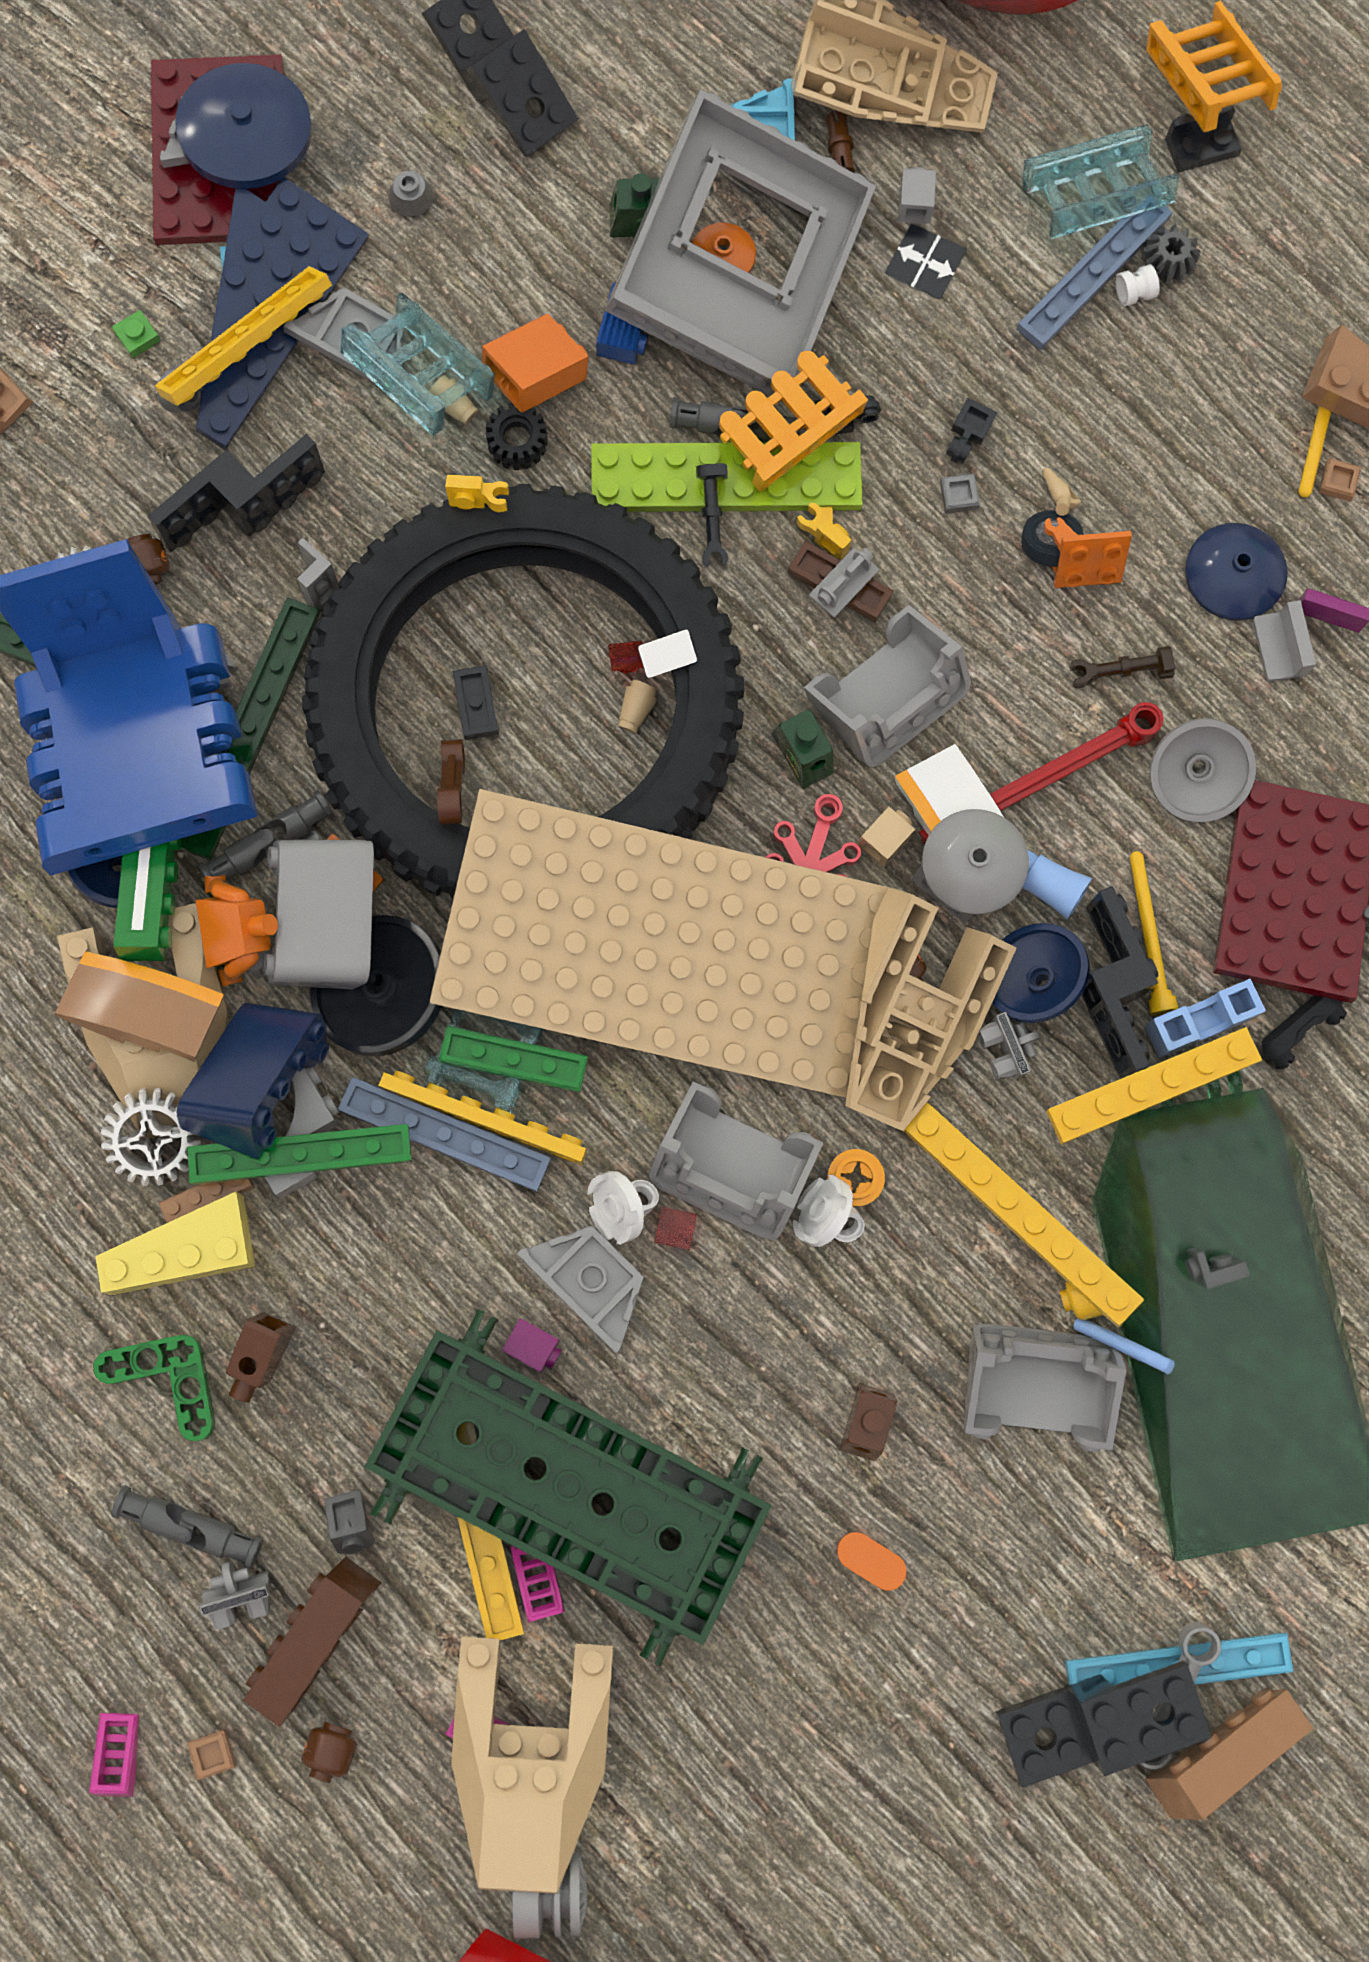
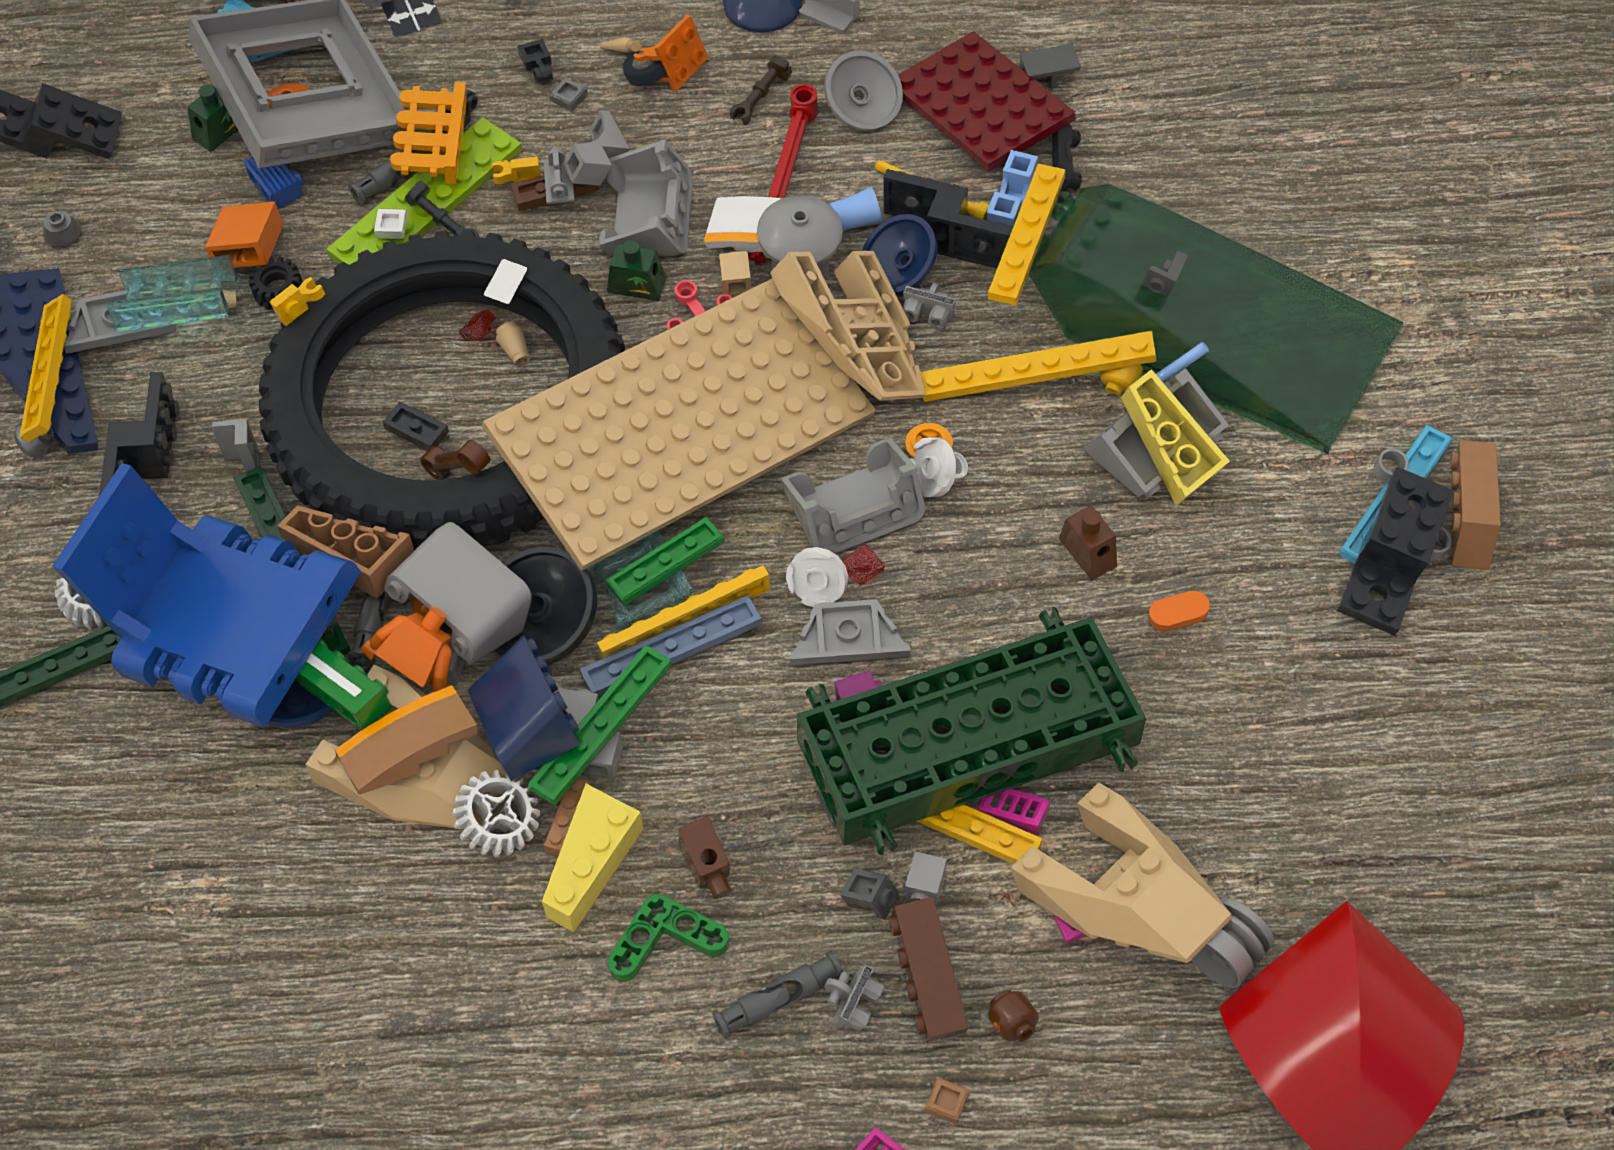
camera: 40 degrees left, 20 degrees down
(286, 787) = (371, 549): none -> medium nougat wedge
(397, 1563) = (925, 877): none -> light grey brick
(659, 479) = (390, 223): none -> white plate
(884, 596) = (590, 161): none -> light grey arch
(1042, 1419) = (1172, 437): none -> light yellow wedge

